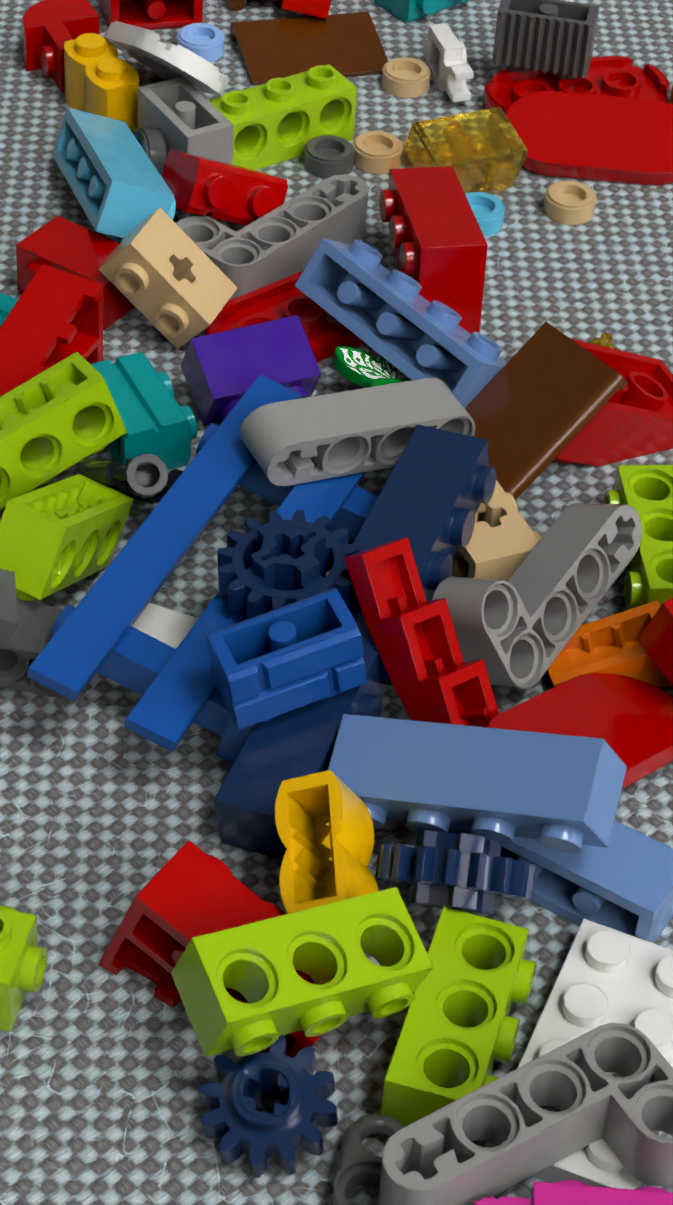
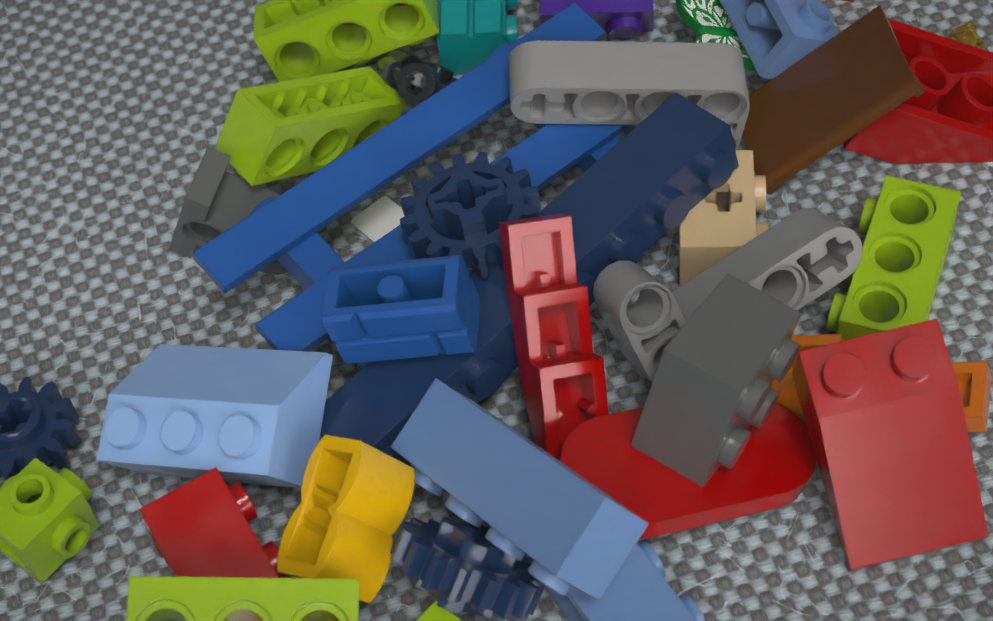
camera: 35 degrees right, 10 degrees up
(127, 811) = (219, 408): none -> light blue slope
(601, 649) = (717, 380): none -> dark grey brick

